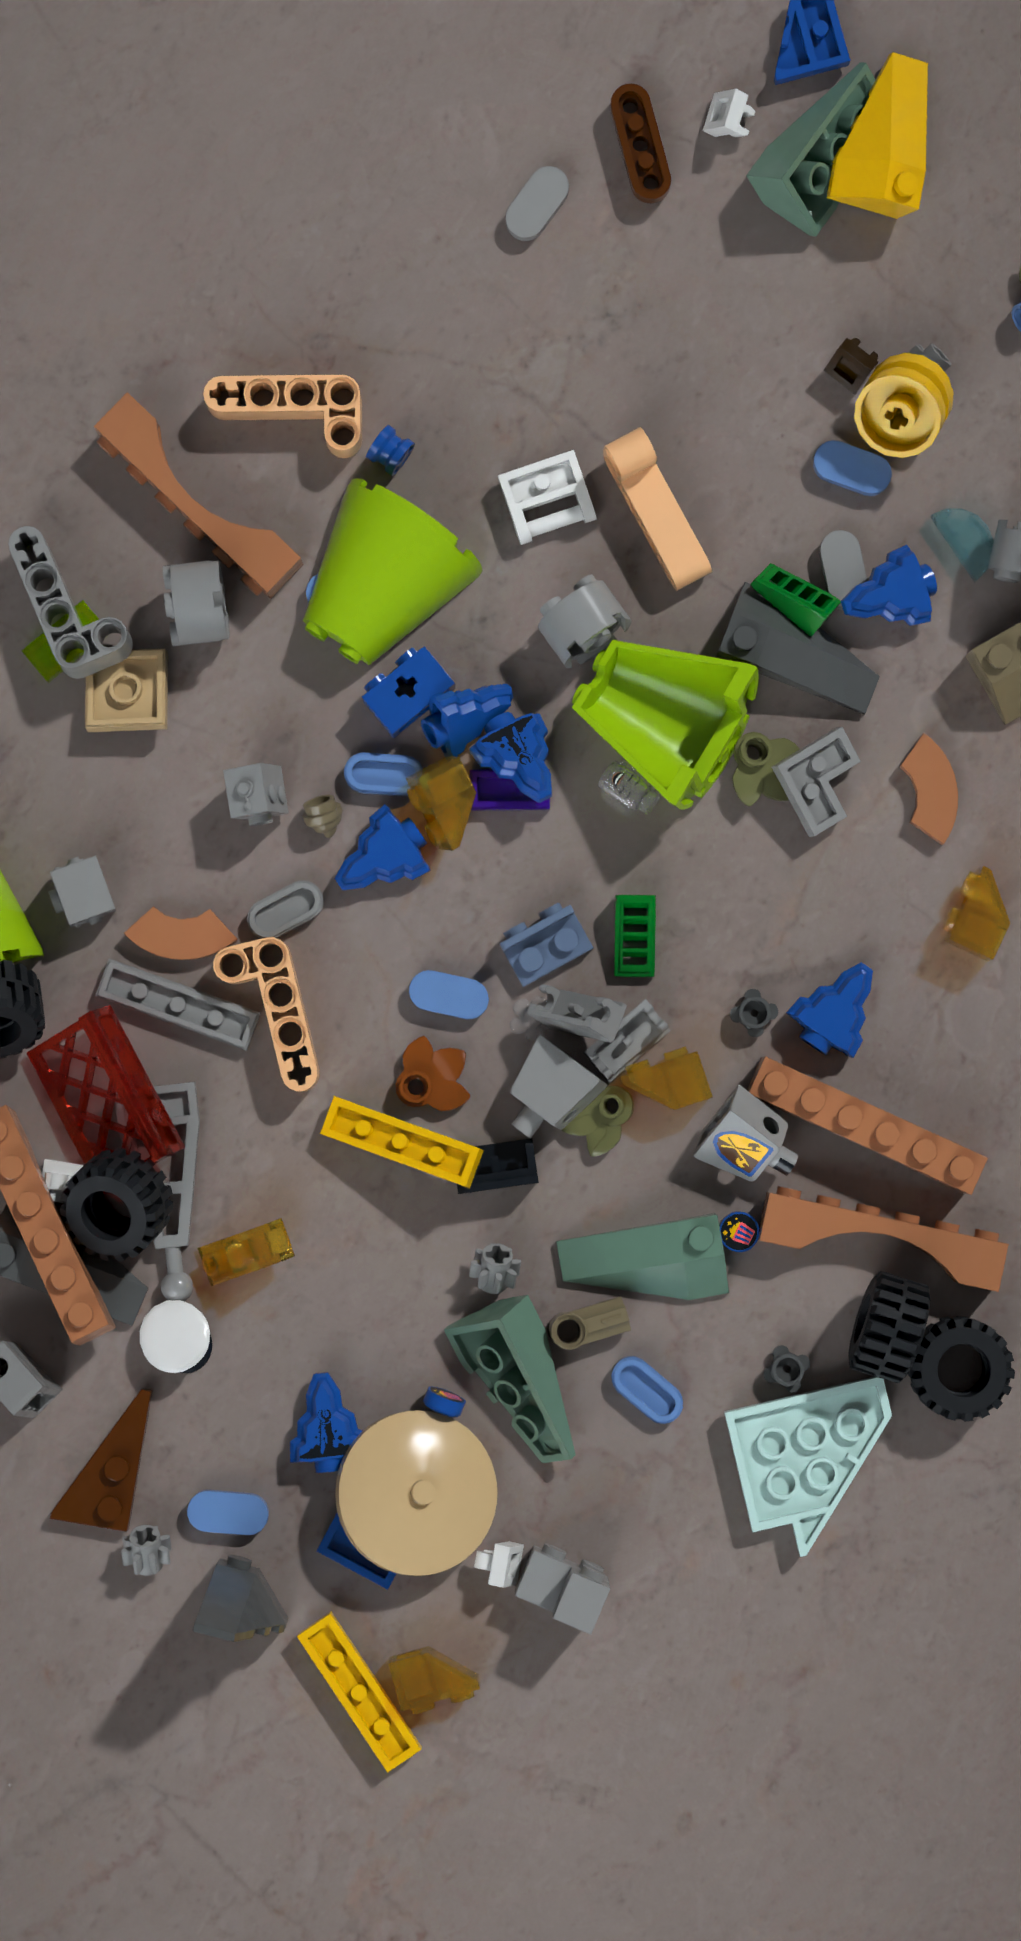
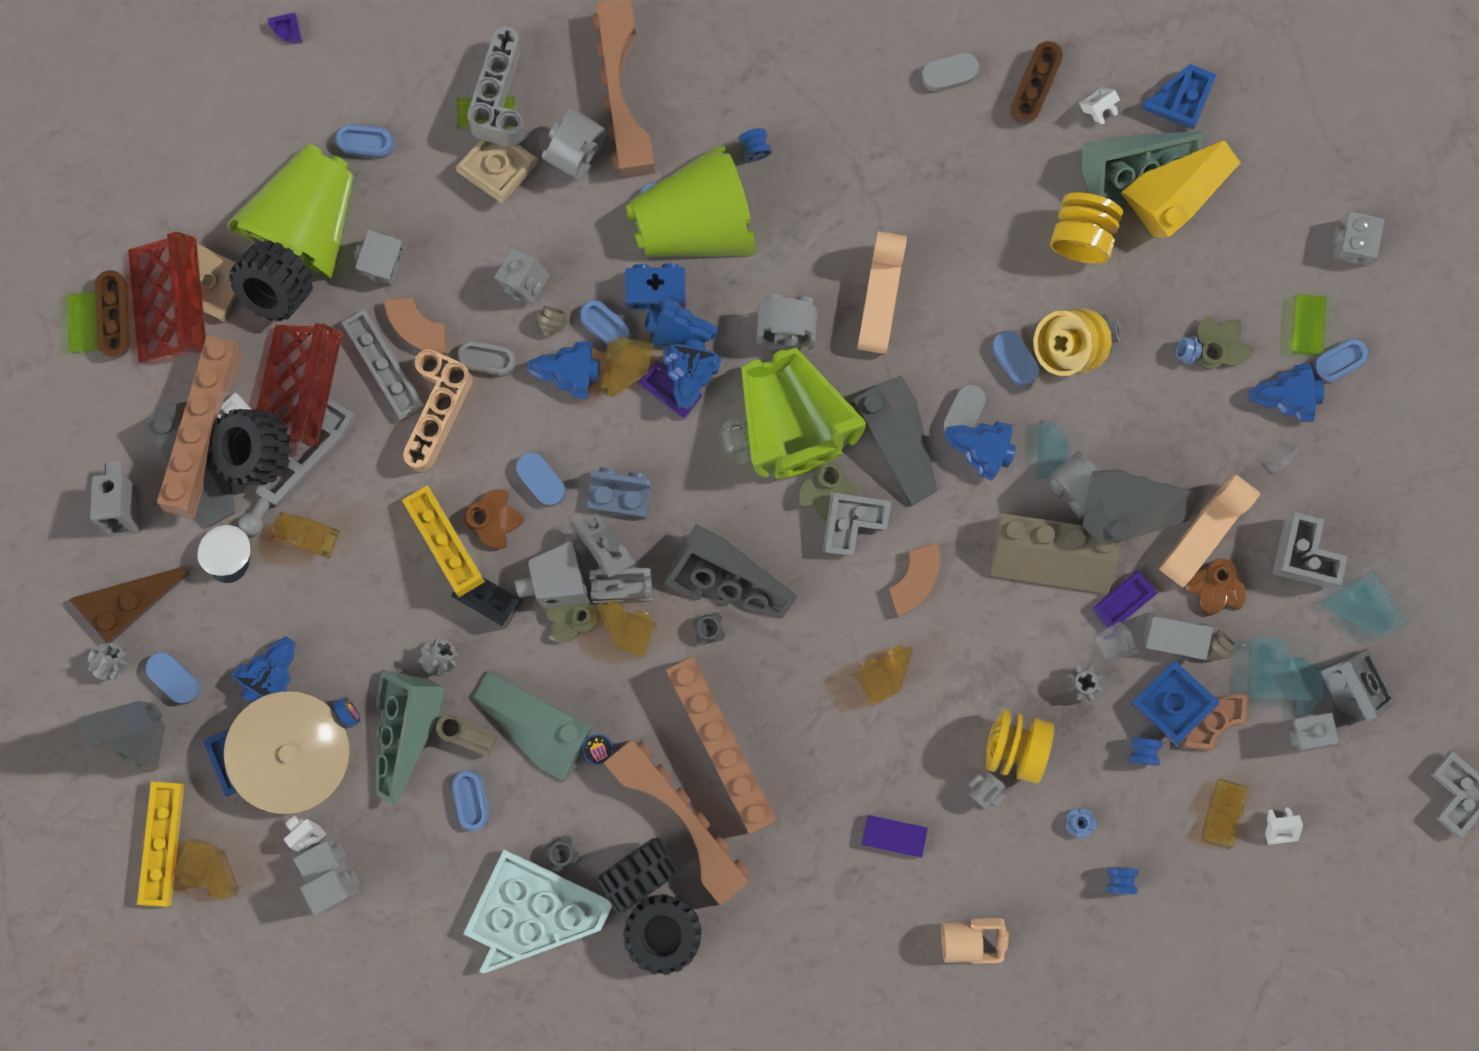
camera: 40 degrees right, 5 degrees down
(283, 407) = (713, 75): light nougat beam -> none
(542, 484) = (826, 230): white plate -> none
(634, 901) = (666, 522): green slope -> none
(716, 943) = (719, 571): none -> dark grey wedge
(745, 1138) = (644, 696): light grey torso -> none
(796, 598) = (922, 407): green slope -> none
(820, 261) = (1086, 228): none -> yellow wheel
(835, 1012) = (755, 664): blue rock -> none
(851, 365) = (1061, 296): dark brown tile -> none

